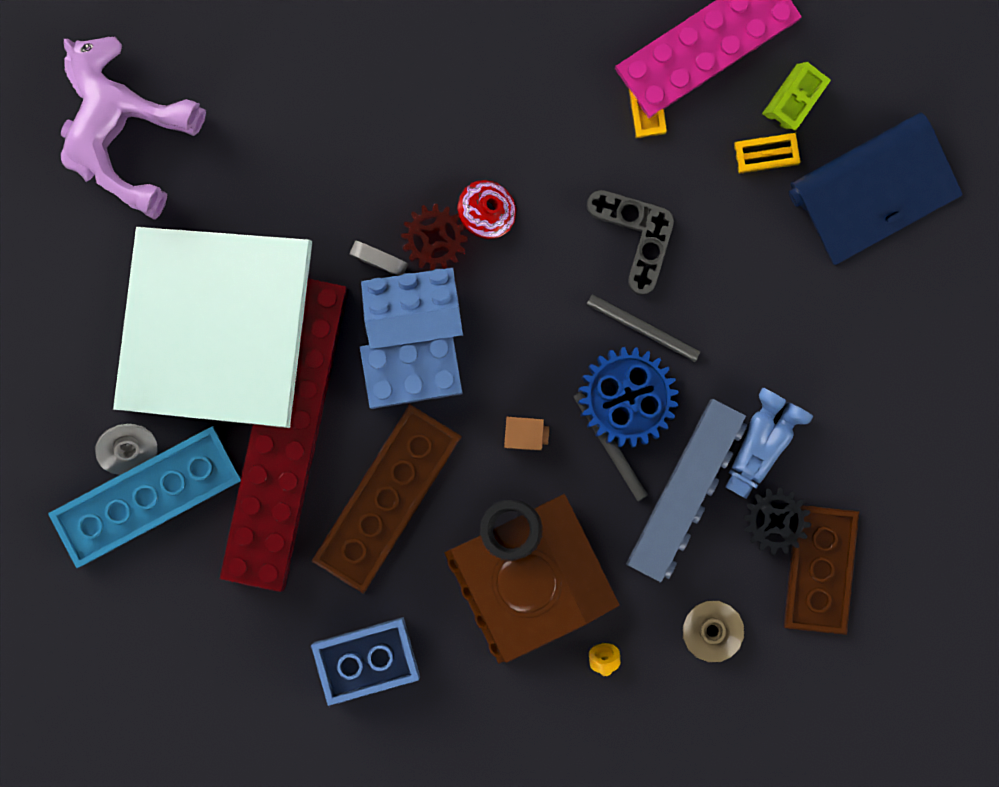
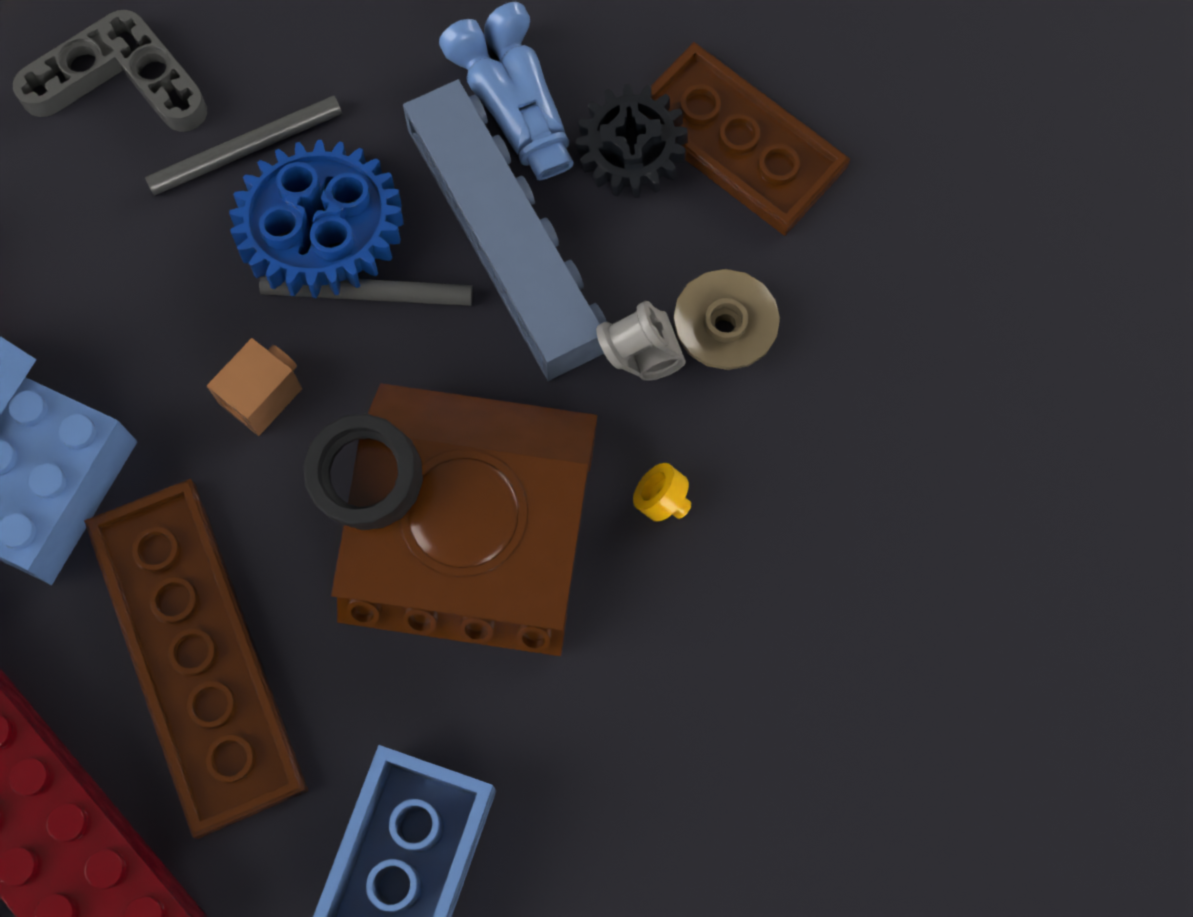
camera: 60 degrees left, 15 degrees down
(669, 600) = (642, 343): none -> light grey piece

